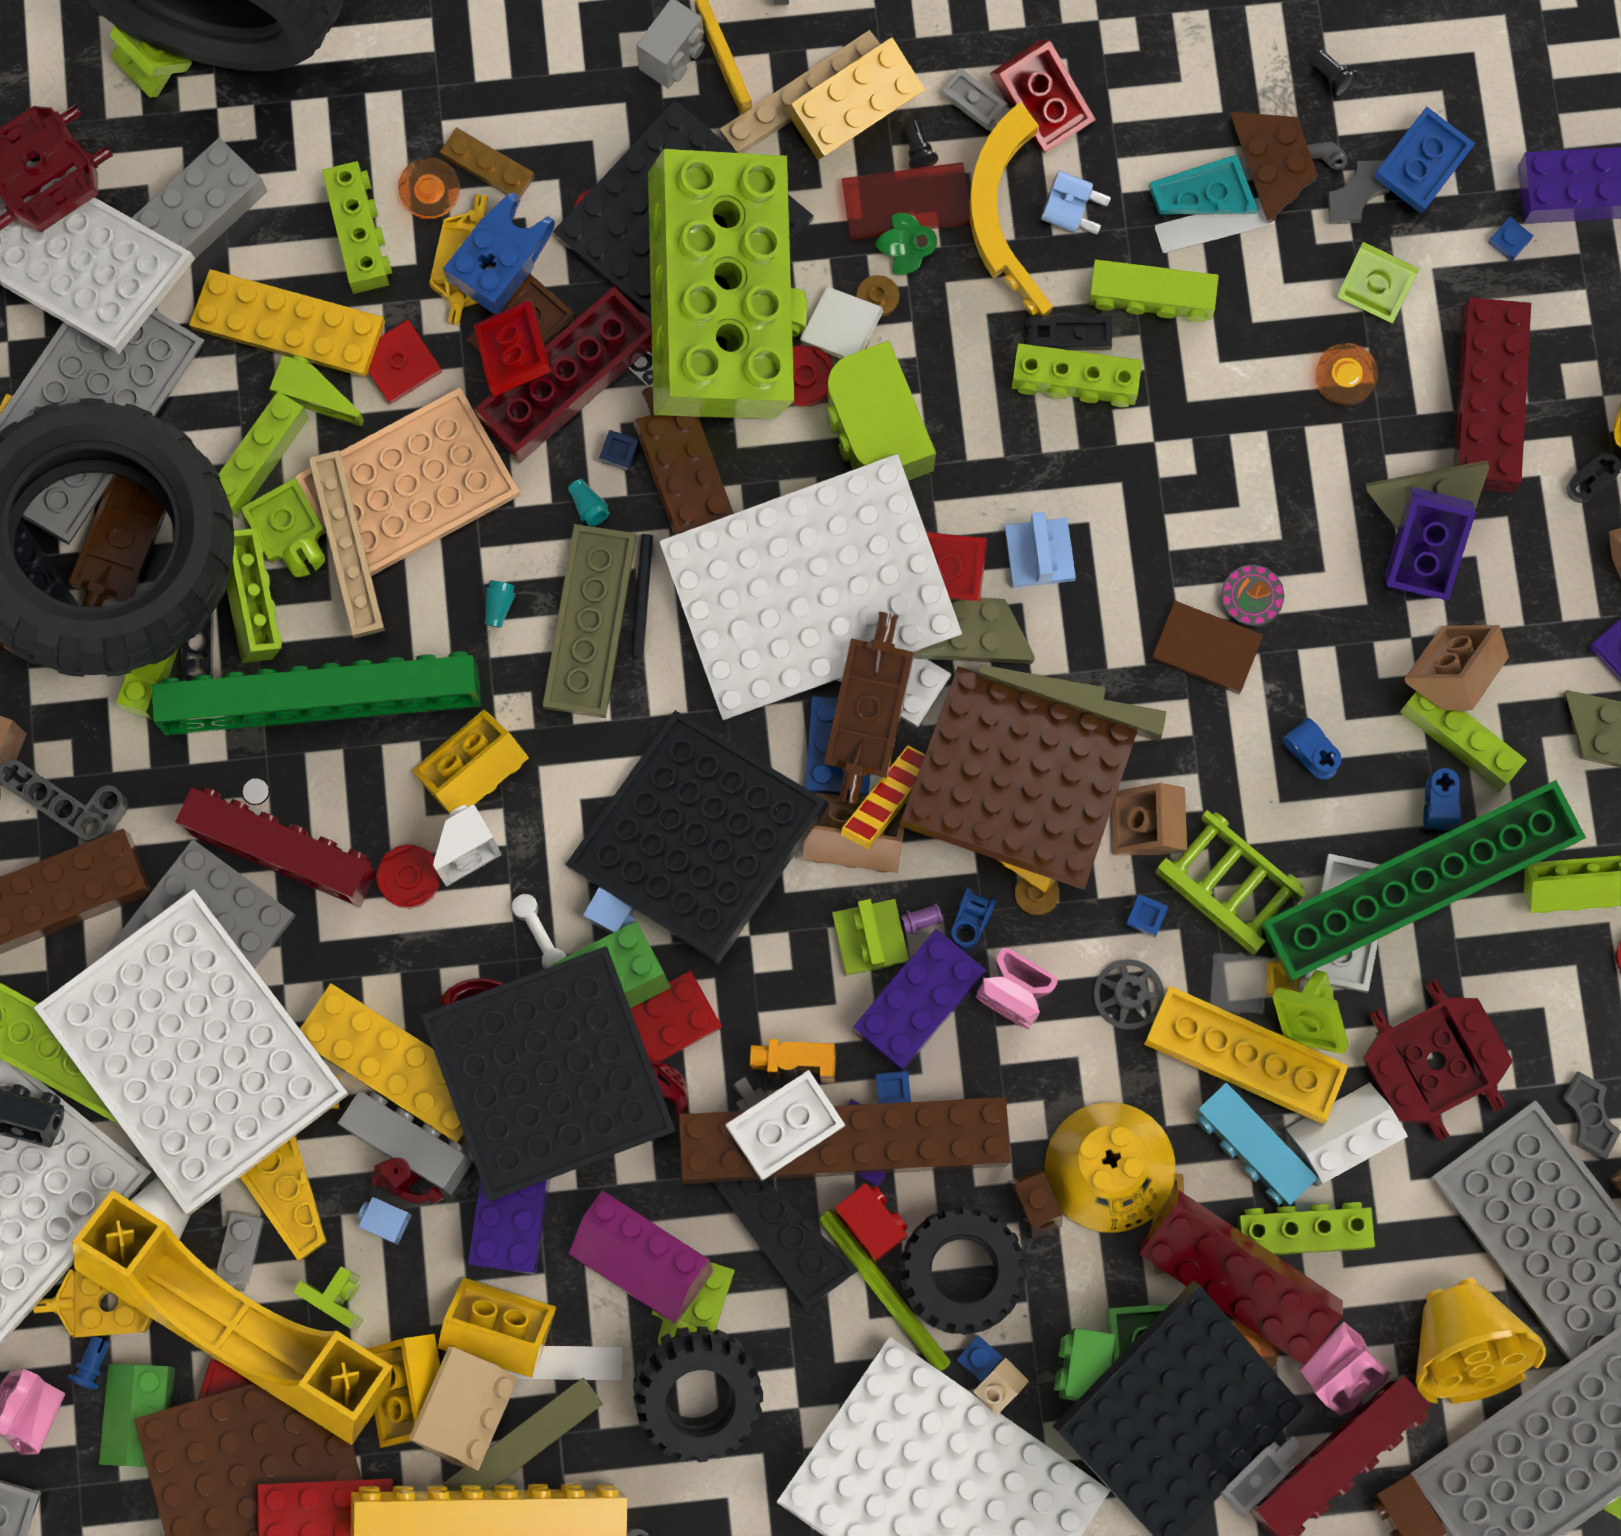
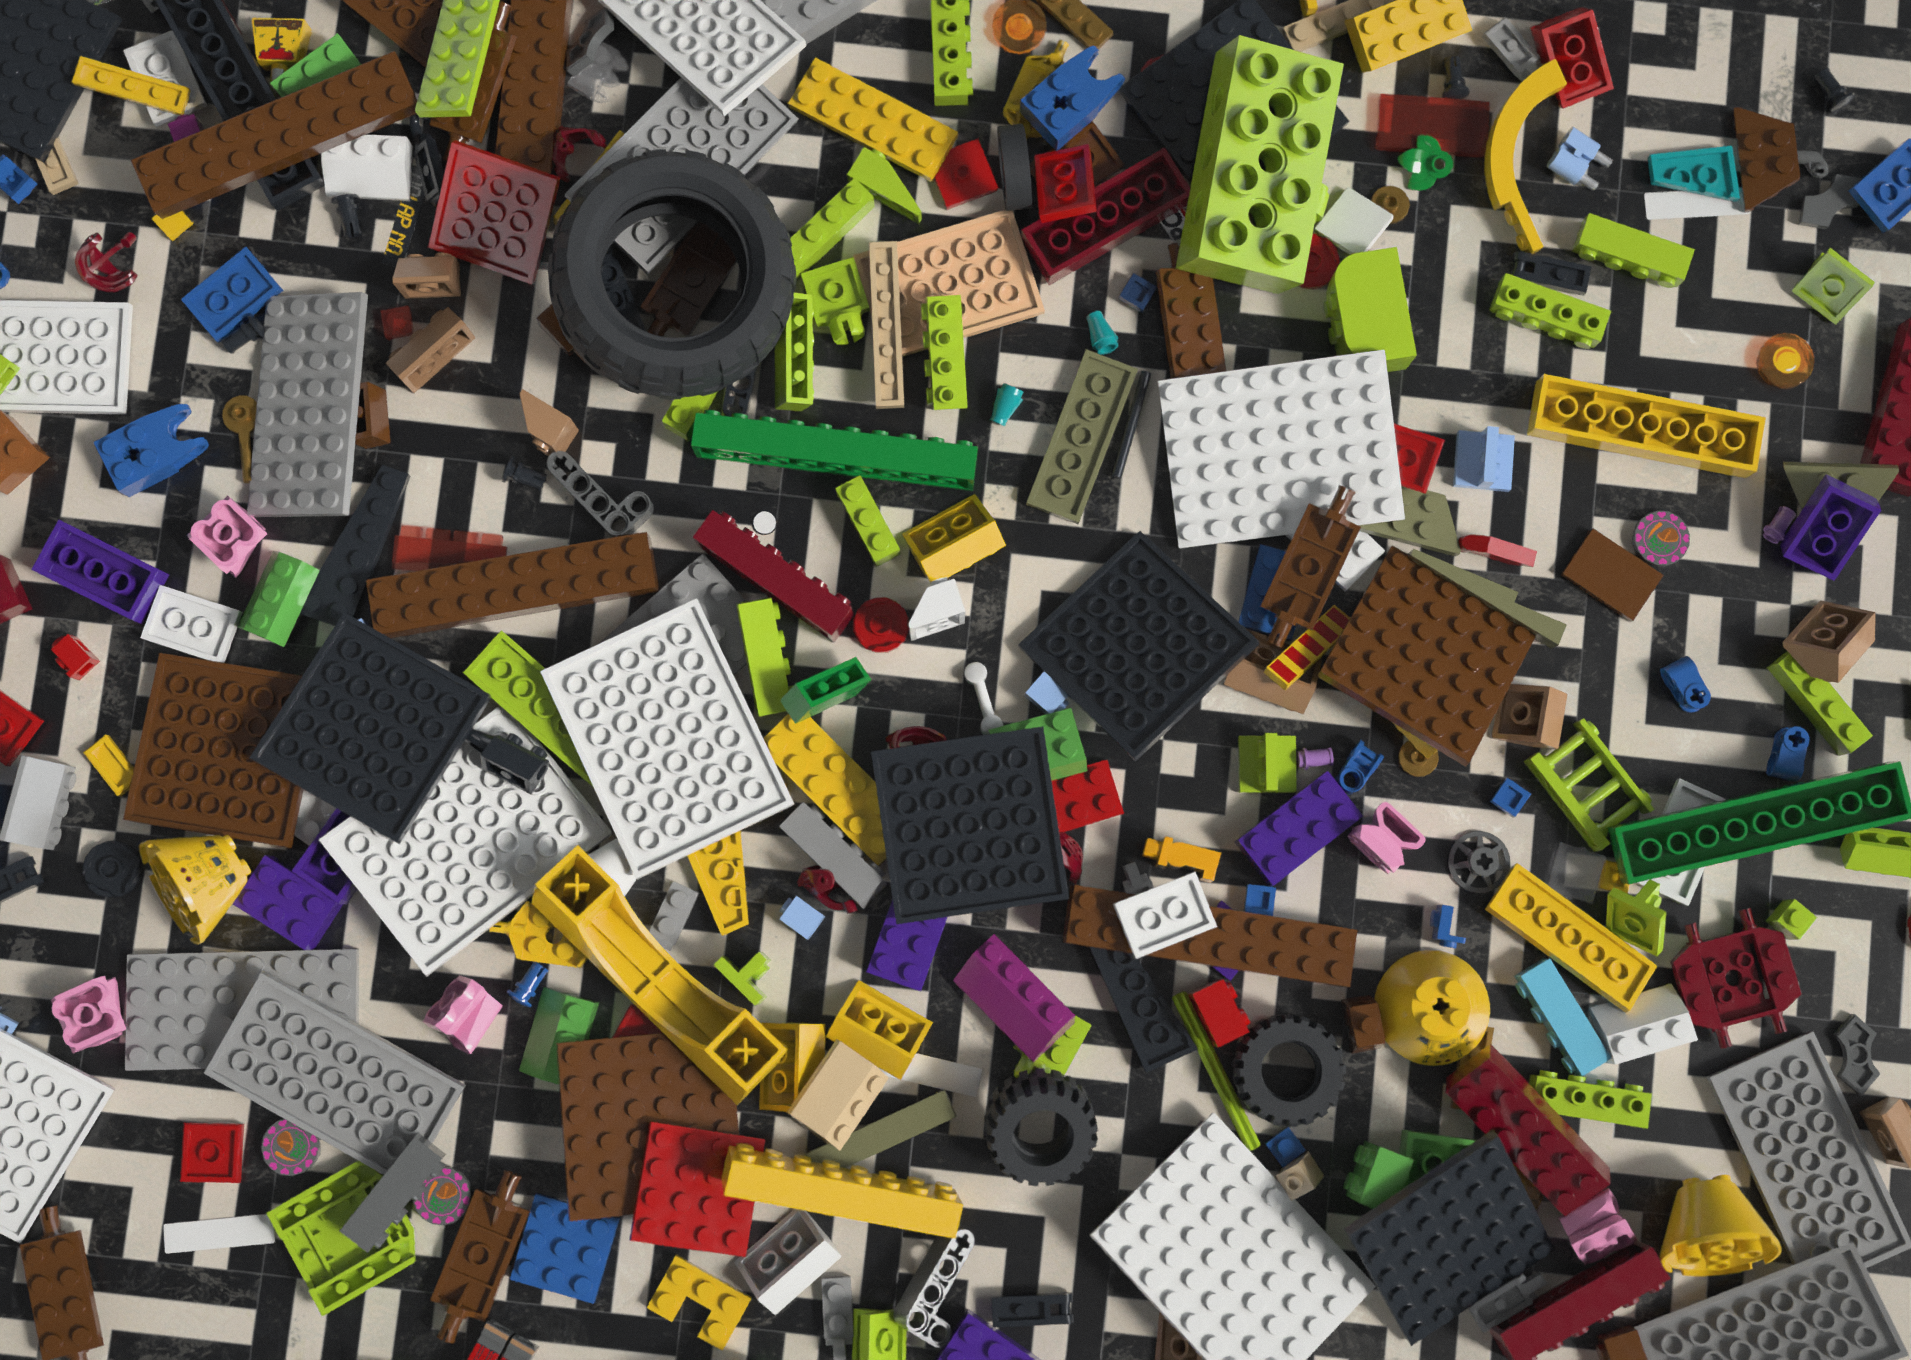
camera: 10 degrees right, 5 degrees up
(283, 938) = (764, 654): none -> lime brick
(358, 959) = (825, 690): none -> green brick
(370, 764) = (868, 521): none -> lime brick
(418, 560) = (946, 352): none -> lime brick
(452, 342) = (1014, 167): none -> black tyre
(1075, 646) = (1498, 550): none -> piece
(1099, 1069) = (1441, 923): none -> blue bracket
(1207, 477) = (1646, 426): none -> yellow brick
(1378, 553) = (1779, 524): none -> medium lavender pin
(1484, 981) = (1791, 919): none -> lime brick

